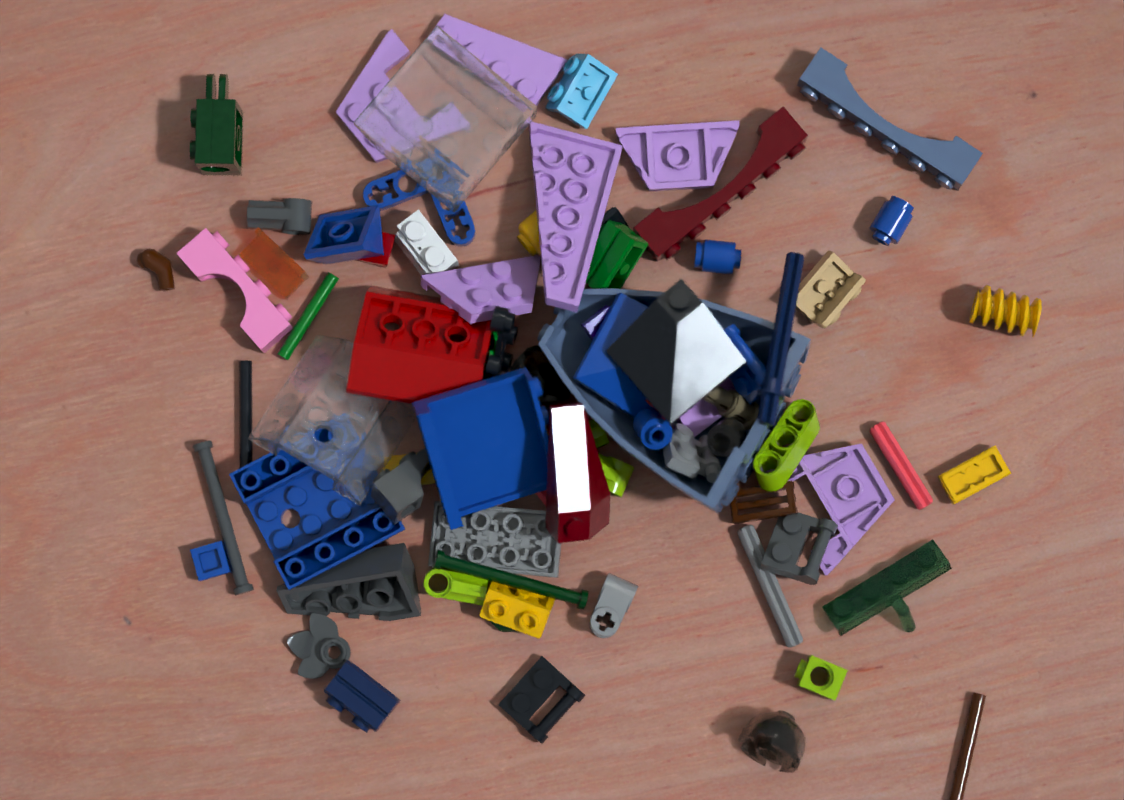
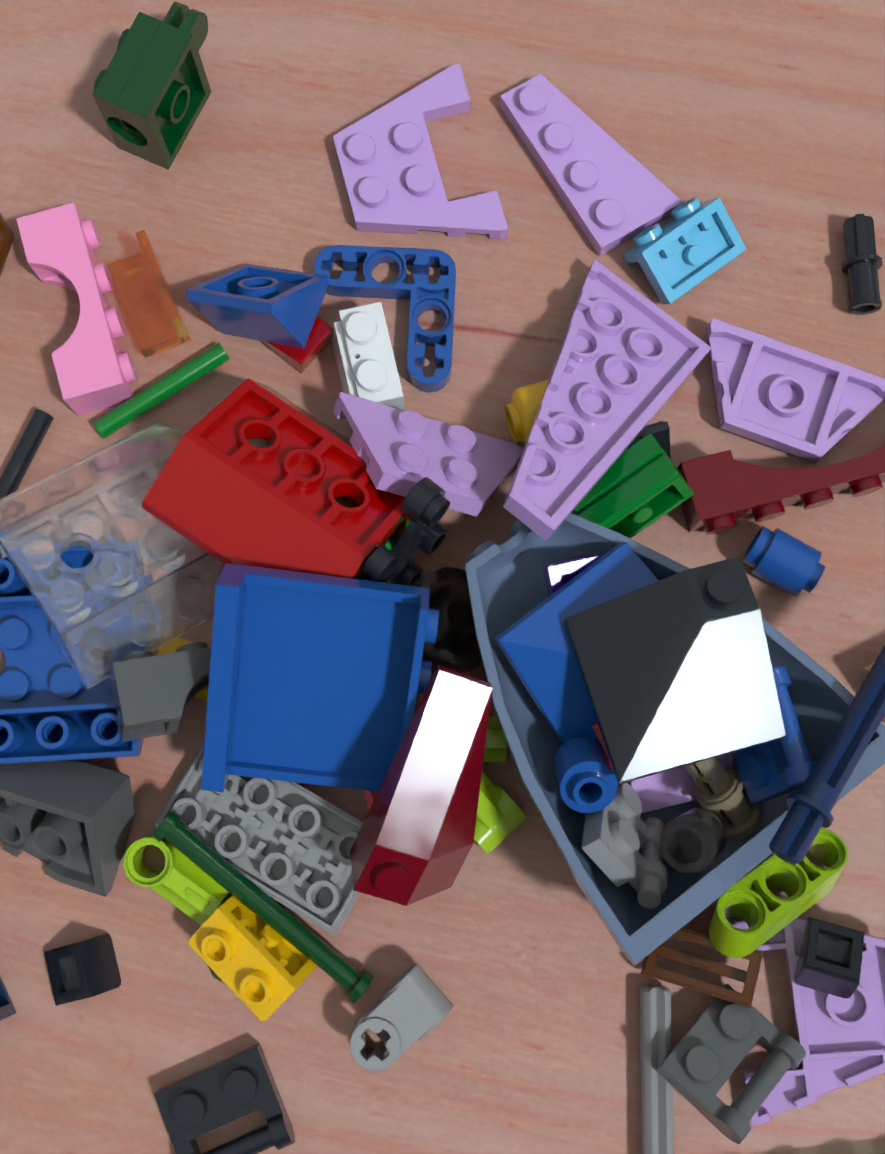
camera: 20 degrees right, 5 degrees down
(289, 216) = (201, 244): dark grey piece -> none
(425, 661) = (82, 969): none -> black slope
(445, 118) = (478, 195): clear slope -> none
(691, 51) = (862, 265): none -> black axle
(828, 468) = (830, 958): none -> black slope

